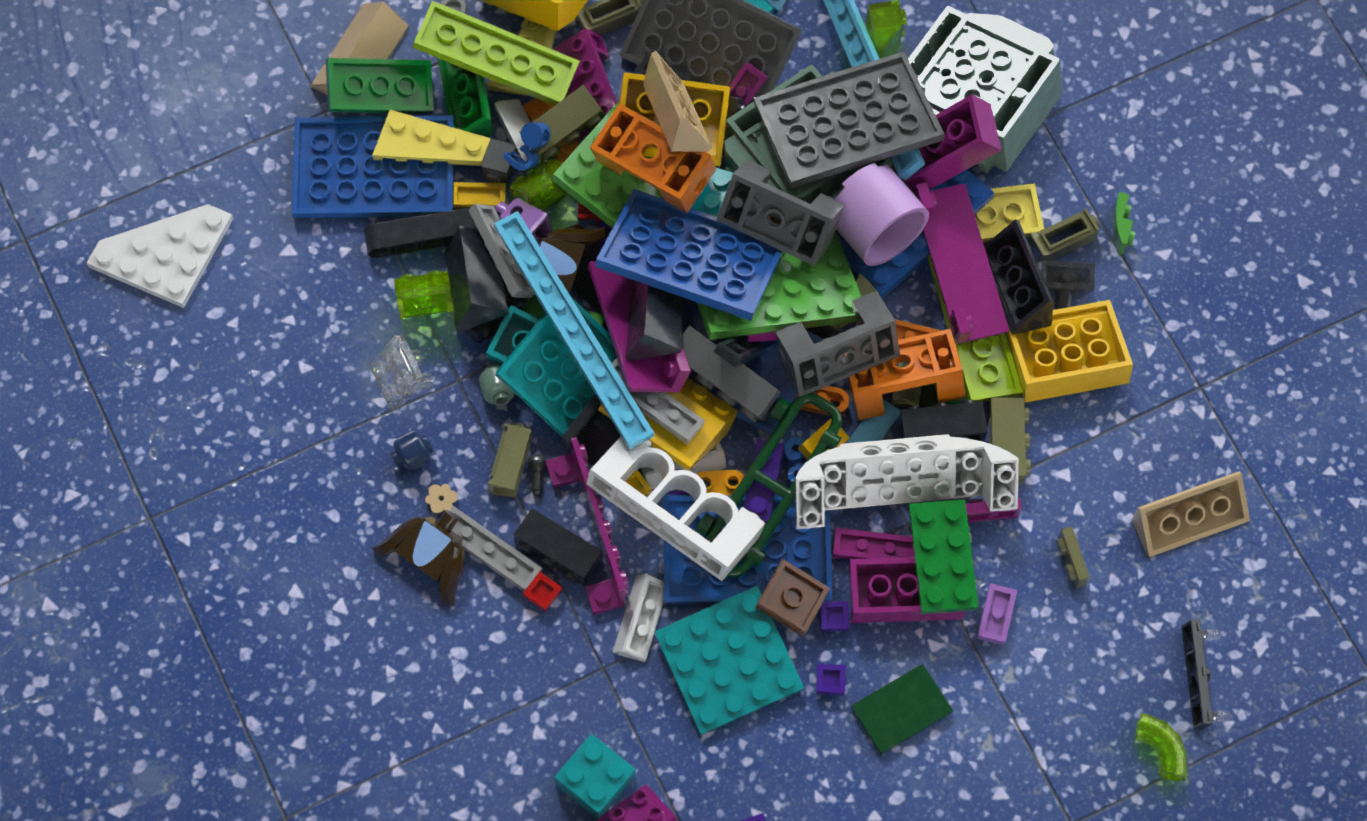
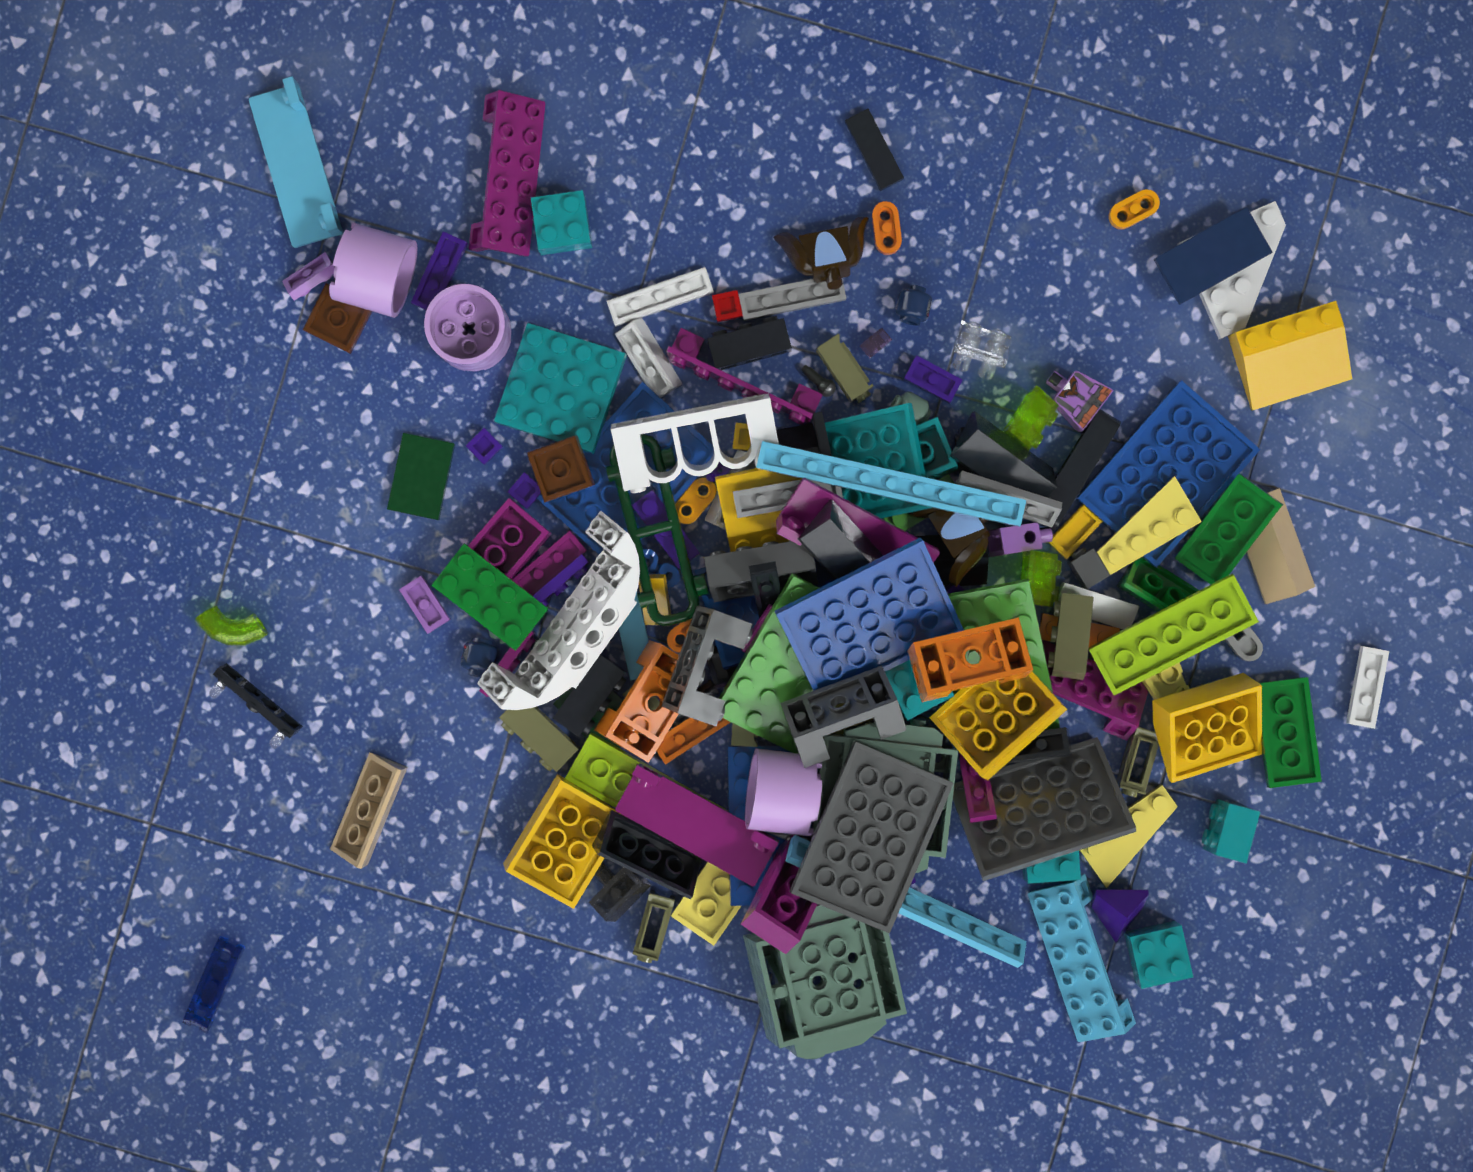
camera: 140 degrees right, 20 degrees up
(173, 267) = (1213, 255): none -> dark blue tile
(187, 356) = (1132, 209): none -> light orange plate
(198, 156) = (1292, 355): none -> yellow slope
(311, 591) = (874, 149): none -> black tile
(365, 525) = (886, 229): none -> orange plate
(374, 274) = (1078, 397): none -> torso
(437, 492) = (866, 292): tan plant -> none
(457, 390) = (933, 379): none -> dark purple plate
(467, 455) = (876, 343): none -> clear purple piece
(534, 136) = (1076, 598): blue leg -> none
(582, 652) = (660, 296): none -> white tile
(674, 108) = (989, 707): tan slope -> none
(735, 104) = (966, 773): black plate -> none
(754, 743) = (463, 307): none -> lavender brick
(880, 524) = (558, 583): none -> dark purple plate
(886, 26) = (933, 950): clear neon green slope -> none
(996, 535) = (478, 656): none -> dark blue head
(1075, 568) = (406, 690): olive plate -> none
(1121, 224) = (619, 973): bright green slope -> none

